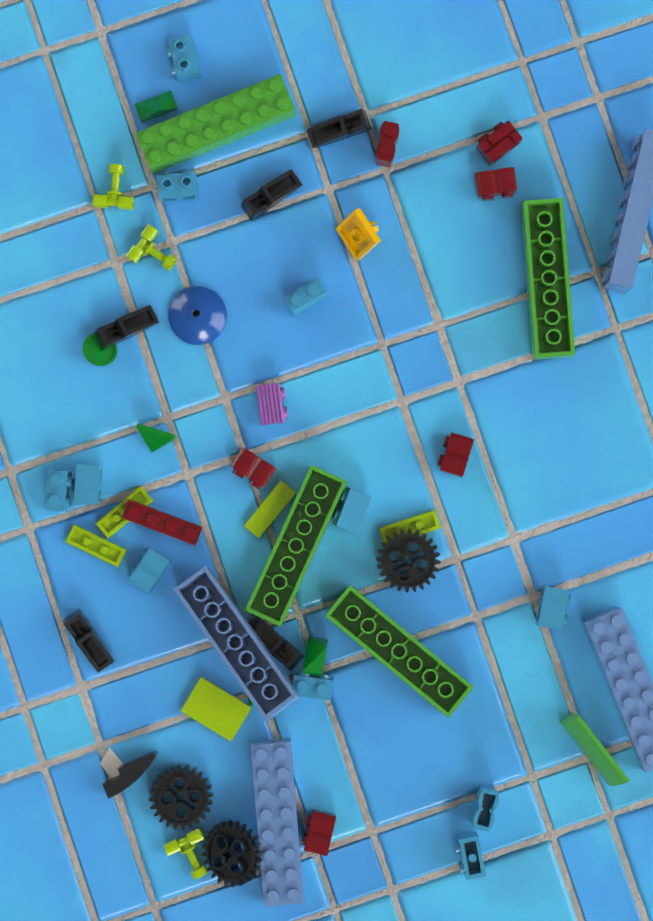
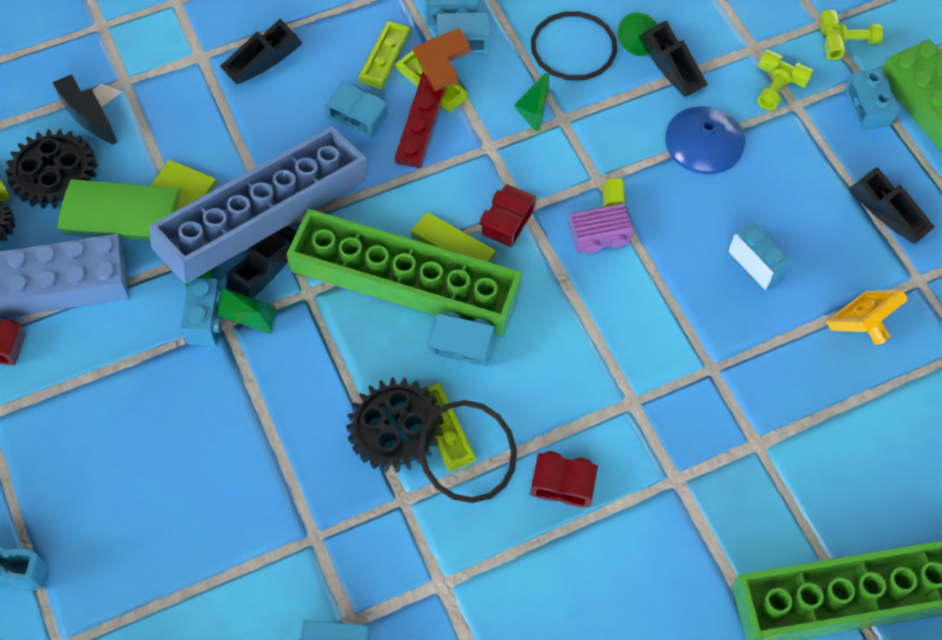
camera: 80 degrees right, 25 degrees down
(114, 507) = (436, 55): none -> dark orange tile
(130, 404) = (573, 14): none -> black piece
(227, 745) = (114, 208): none -> bright green slope
(245, 390) = (613, 192): none -> lime brick
(399, 651) = (254, 422): bright green brick -> none
(417, 538) = (433, 480): none -> black piece

